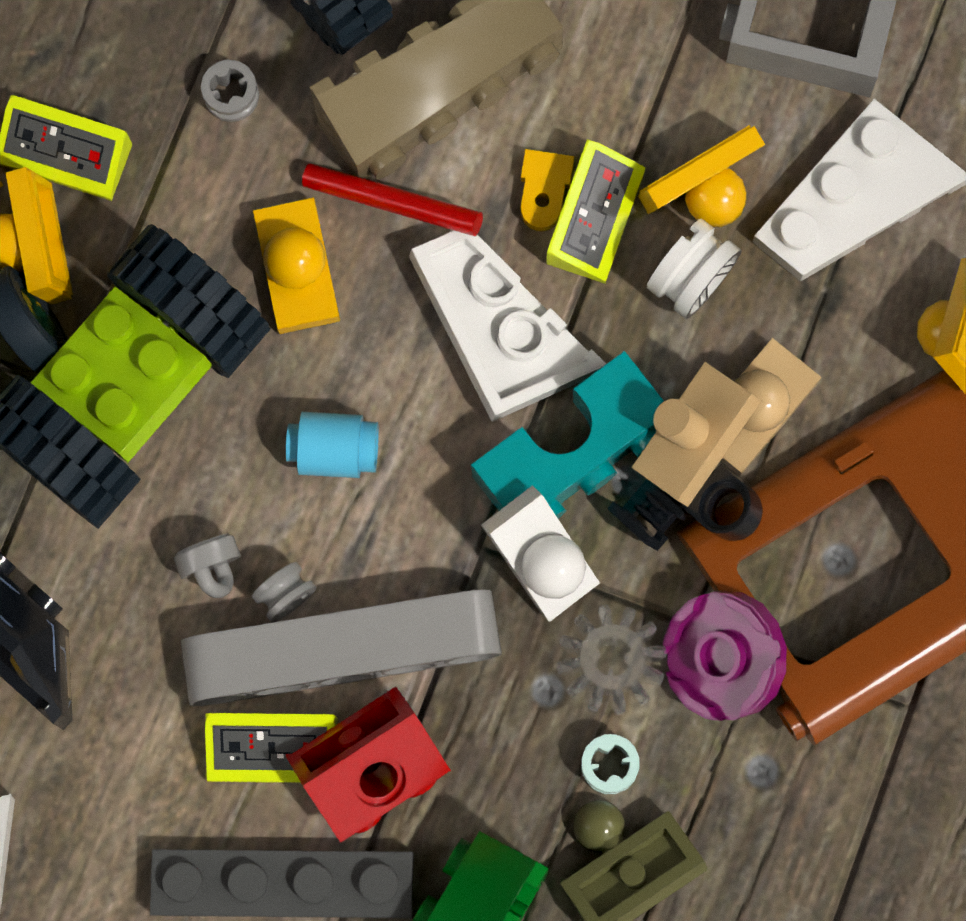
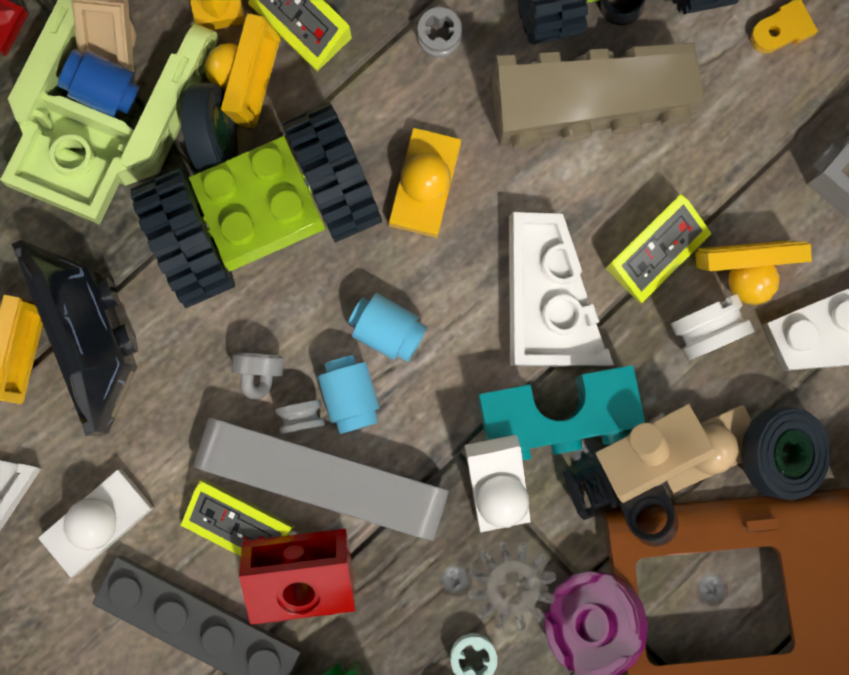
camera: 20 degrees right, 5 degrees up
(109, 825) = (96, 523): none -> white tile
(326, 540) = (349, 394): none -> medium azure brick
(392, 199) = (517, 169): red bar -> none
(544, 177) = (636, 206): yellow piece -> none
(868, 355) = (763, 453): none -> black bush

